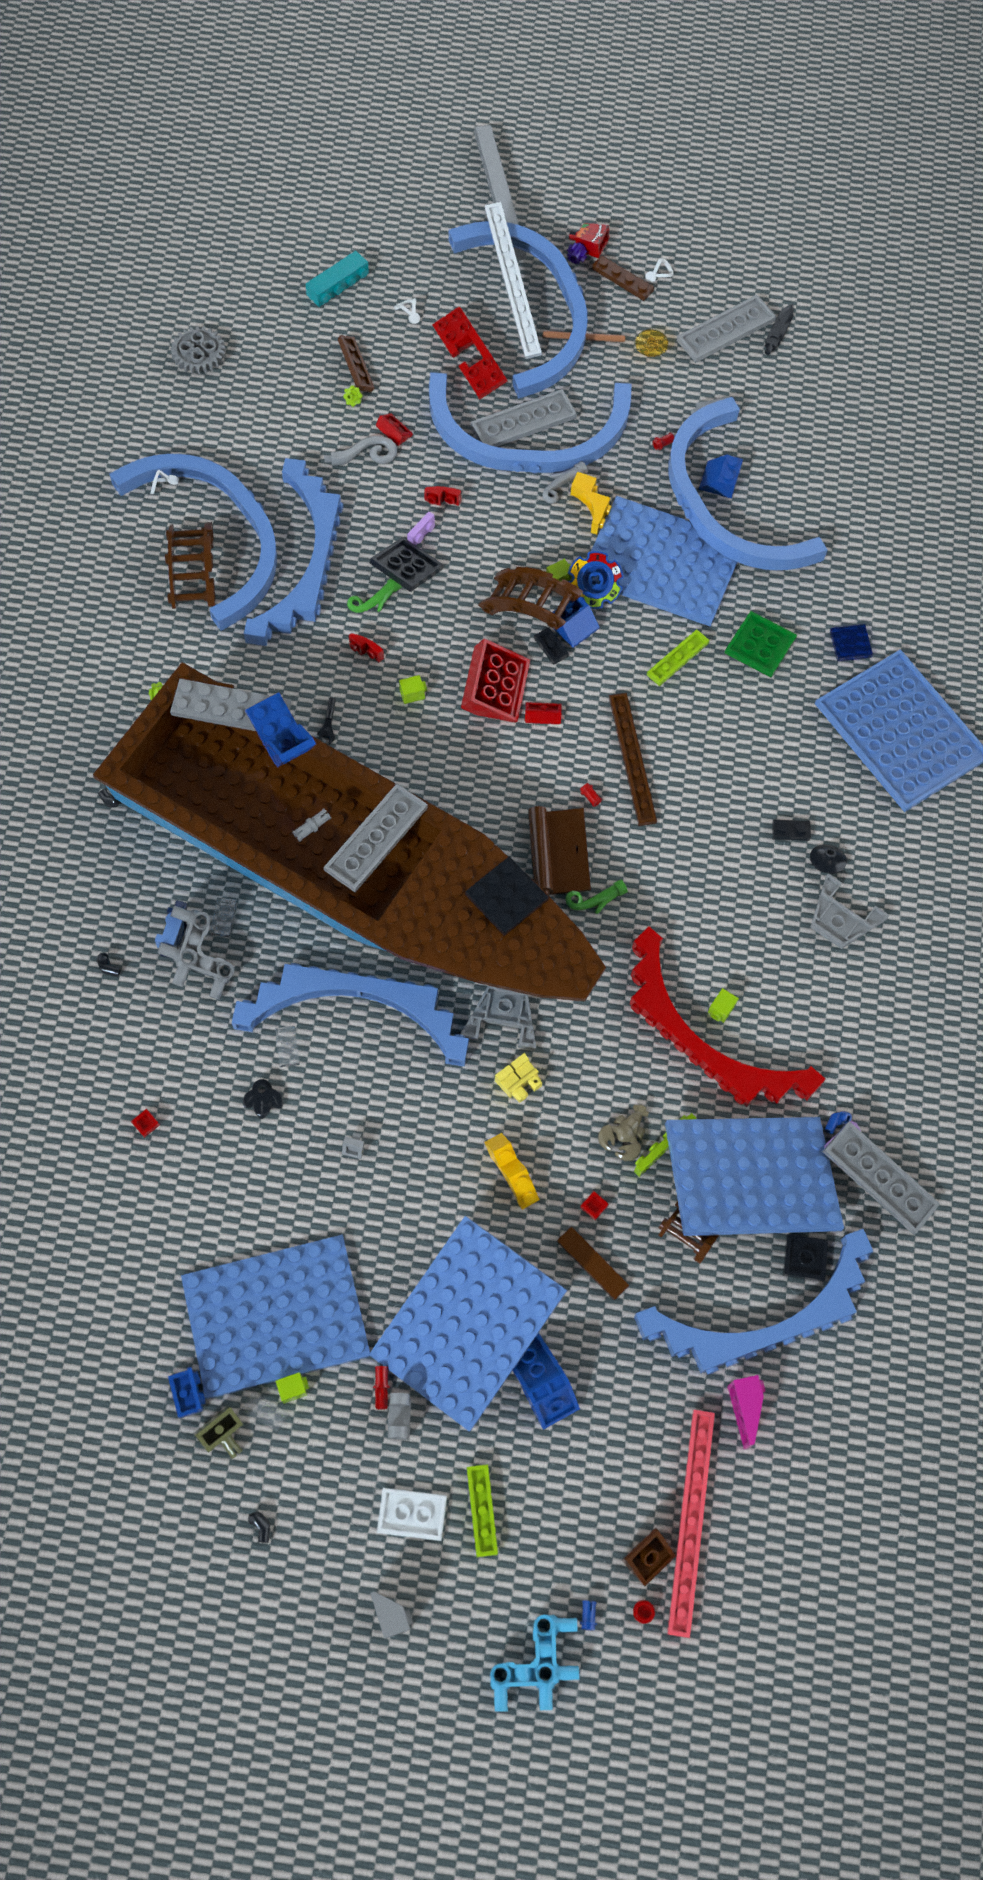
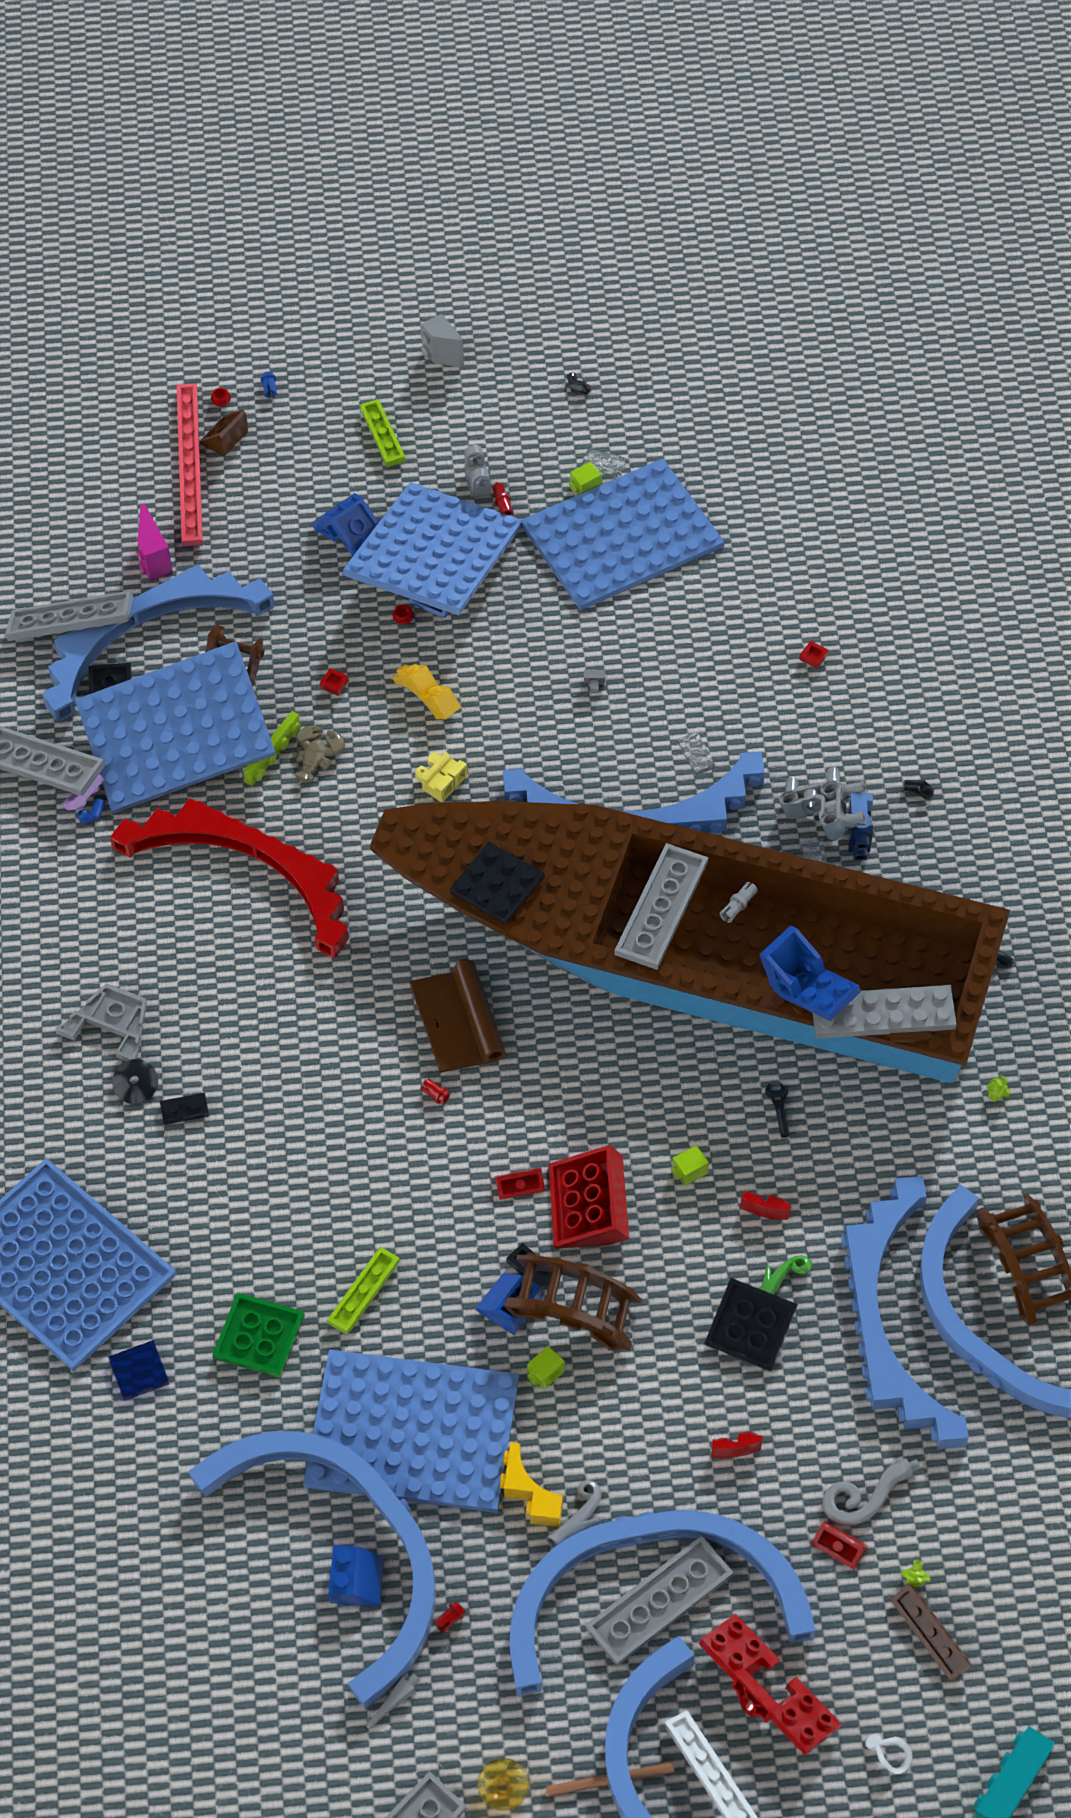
camera: 170 degrees right, 10 degrees down
(186, 1392) = (681, 457): blue bracket -> none
(219, 1431) = (639, 433): olive brick -> none
(262, 1101) = (703, 703): black plate -> none
(412, 1514) = (445, 421): white tile -> none
(424, 526) = (751, 1377): lavender plate -> none
(528, 1674) = (304, 339): medium azure pin -> none
(593, 1263) = (325, 637): reddish brown tile -> none
(600, 899) = (379, 990): bright green plant -> none
(609, 575) = (495, 1357): blue piece -> none
(632, 759) = (395, 1152): reddish brown tile -> none
(722, 1005) = (234, 893): lime brick -> none
(838, 1335) = (69, 616): none -> light grey plate

